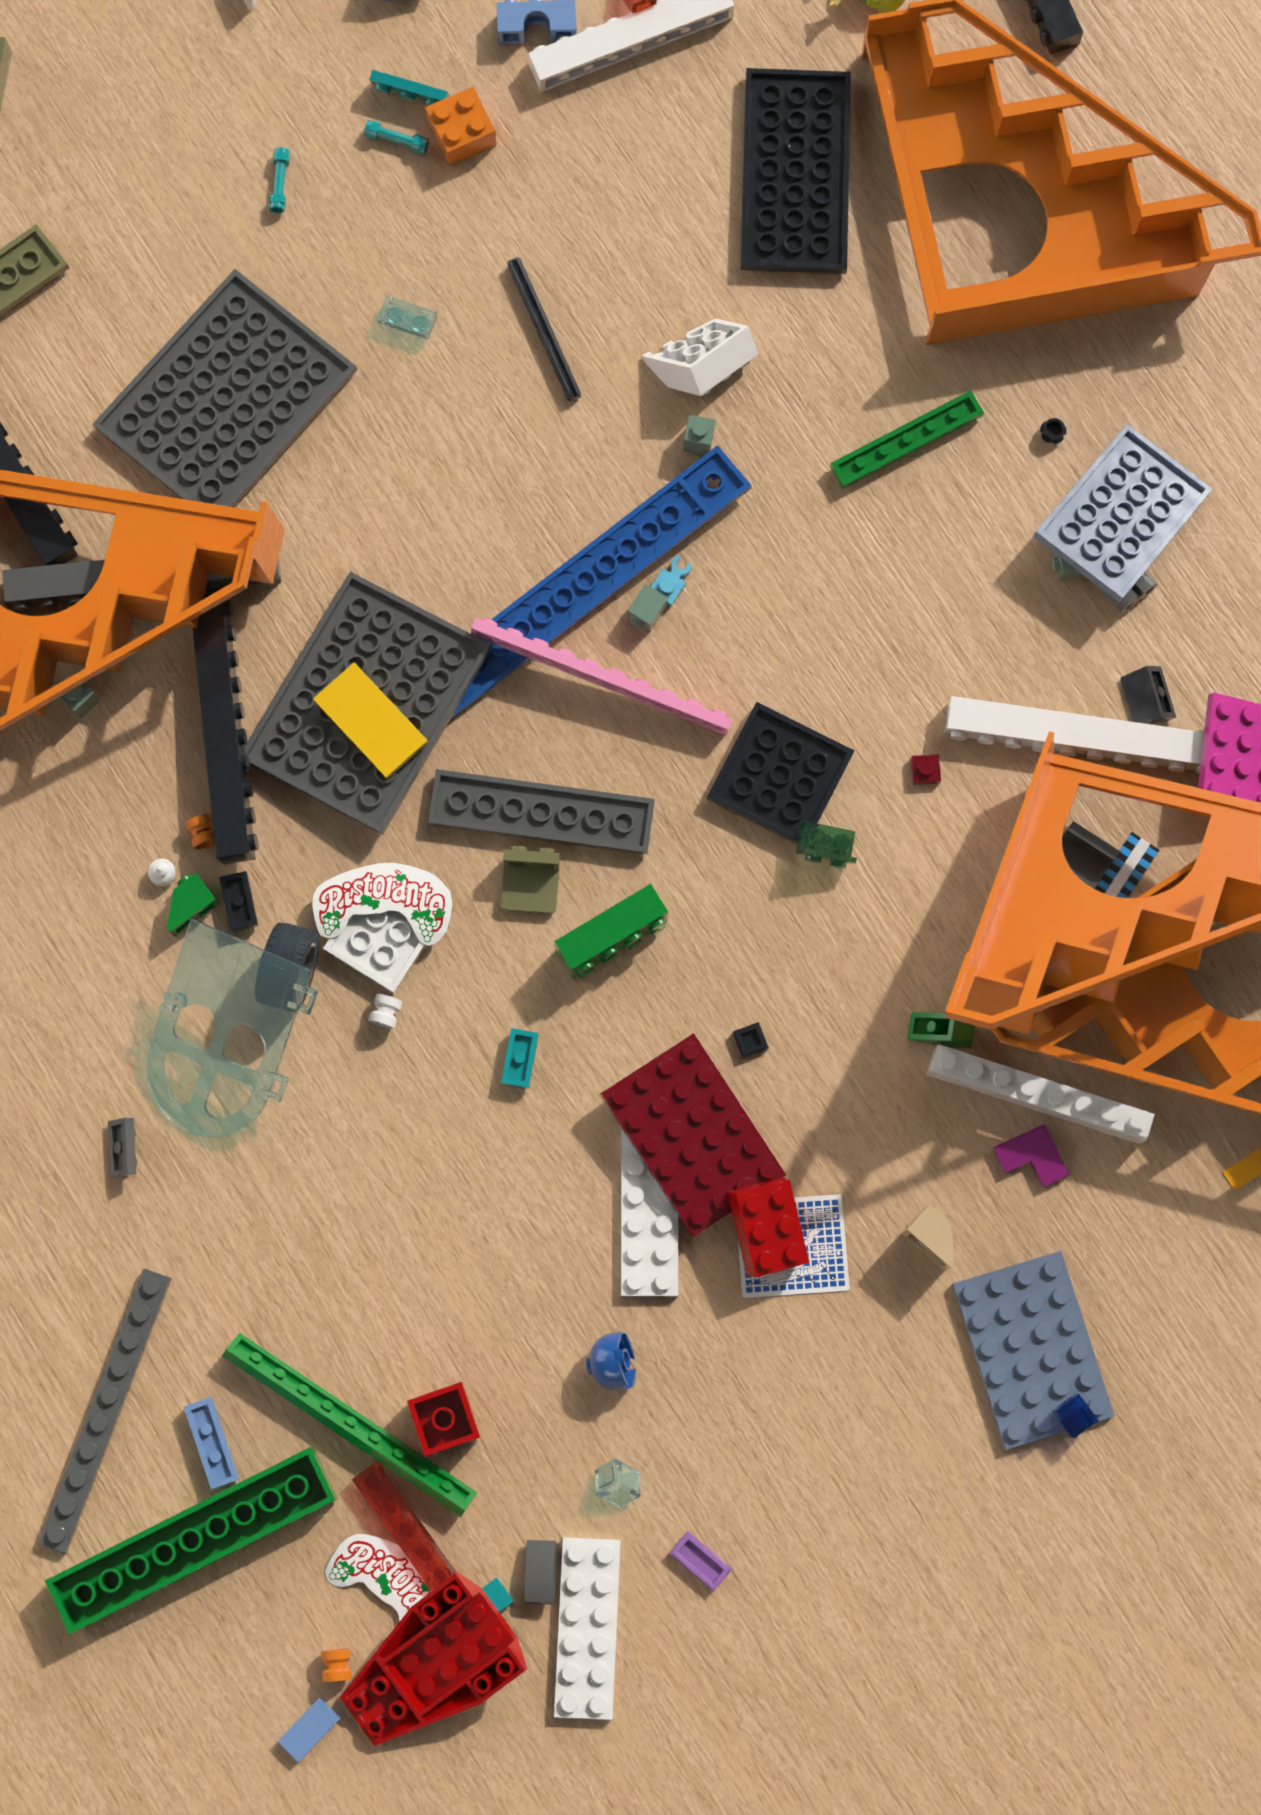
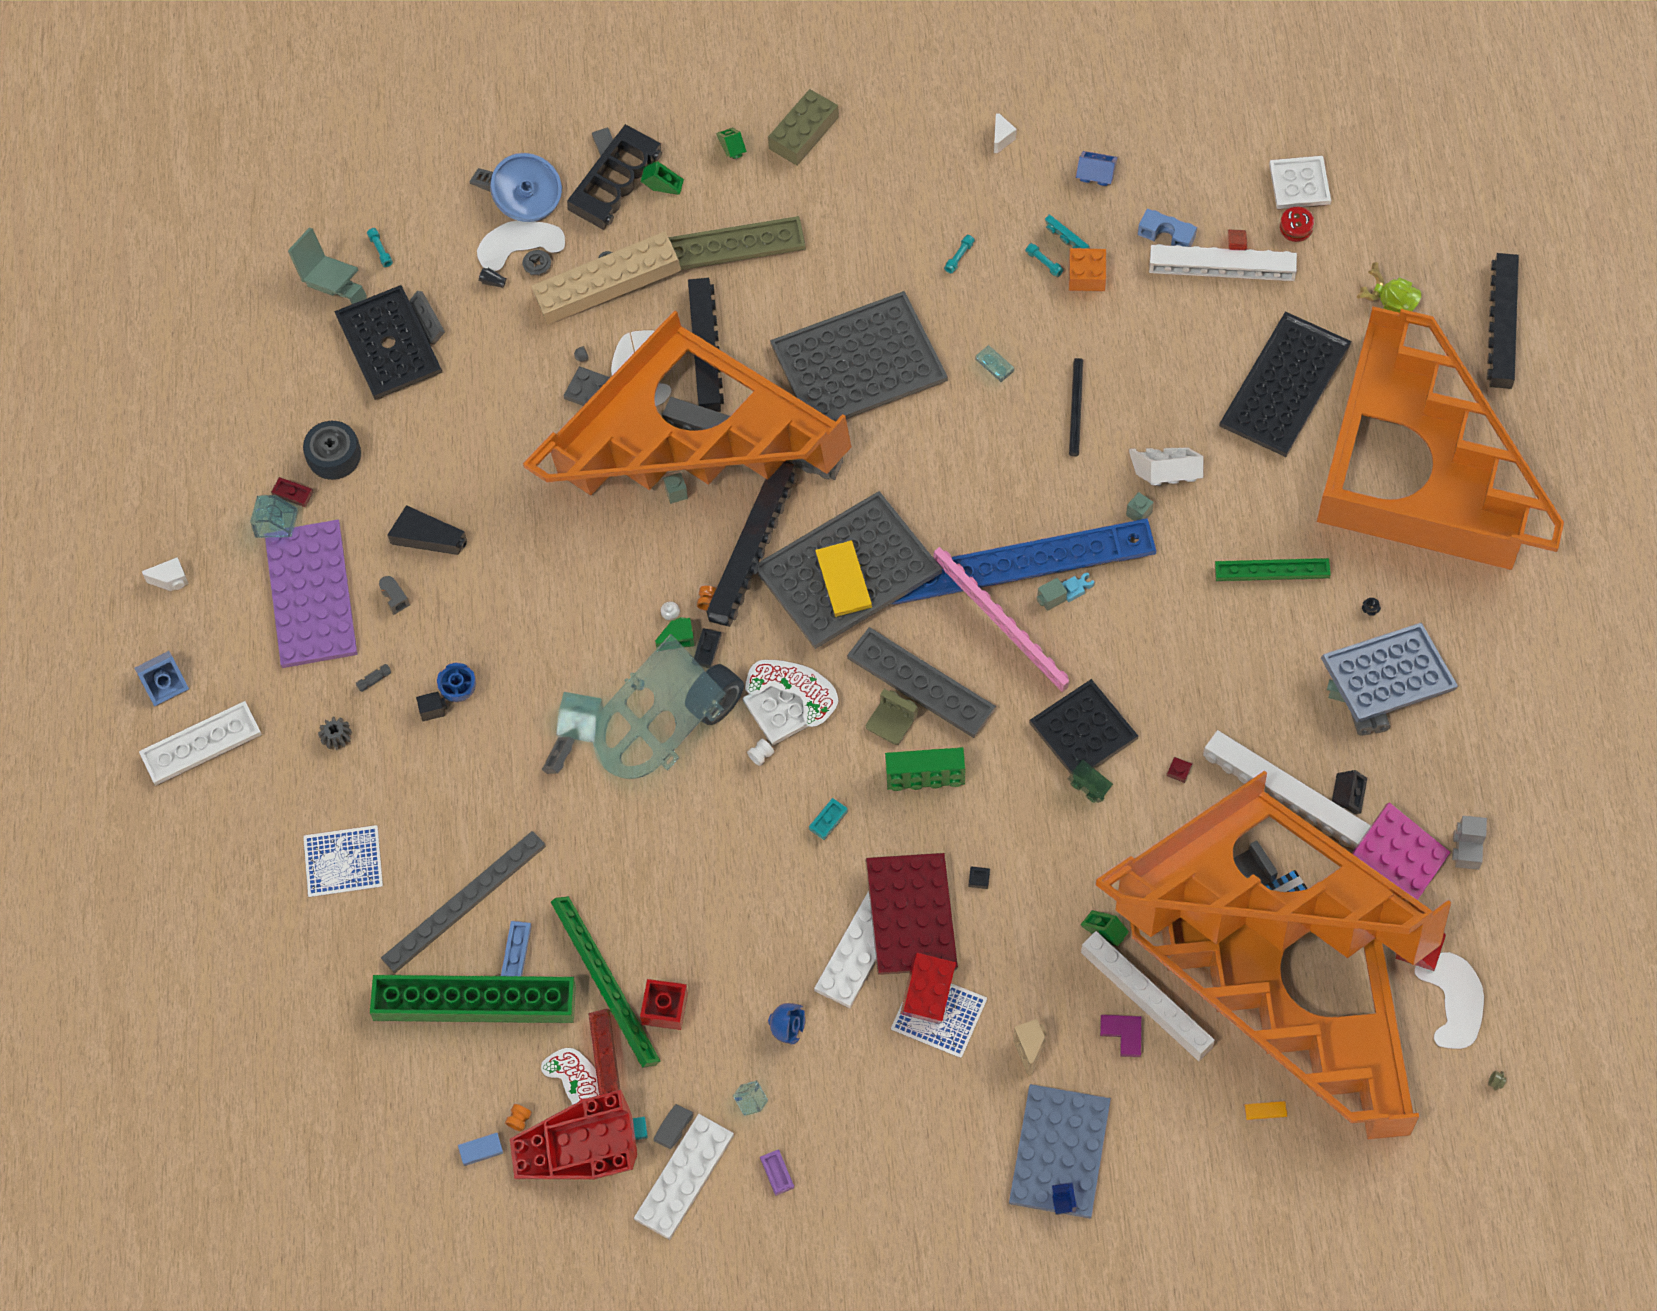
camera: 35 degrees right, 15 degrees down
(121, 1081) = (578, 716): none -> clear light blue slope

